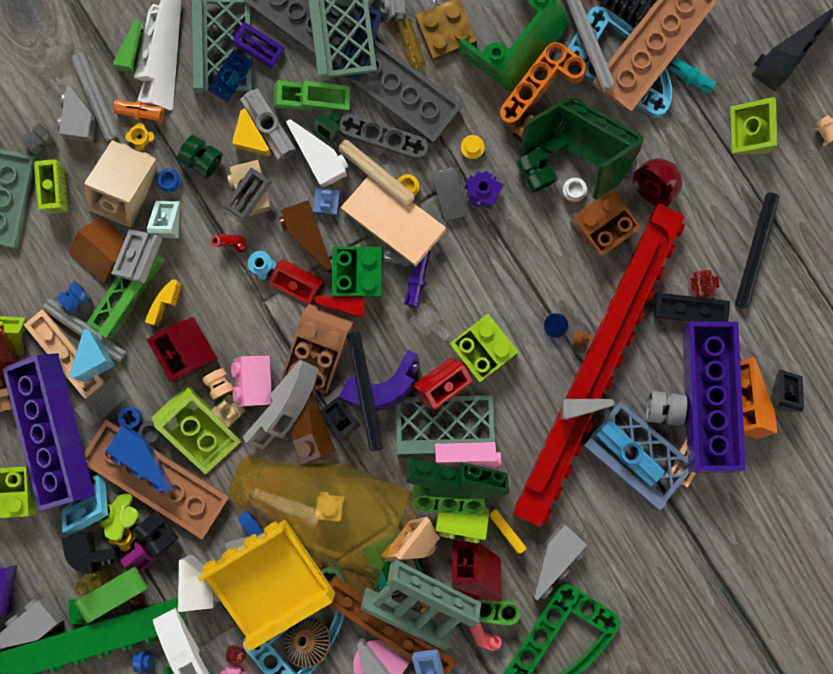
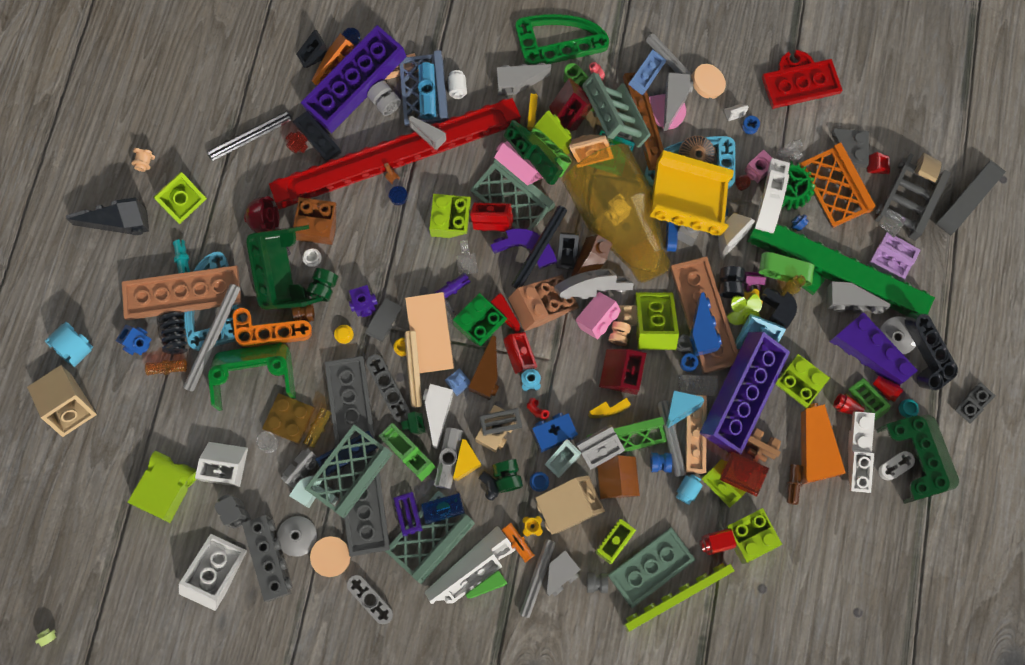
camera: 145 degrees left, 10 degrees down
(27, 296) = (689, 489): none -> medium azure brick
(194, 222) = (548, 440): none -> blue brick
(214, 140) = (492, 490): none -> black arm
(610, 492) = (457, 84): none -> white brick
(767, 446) = (352, 35): none -> clear blue tile

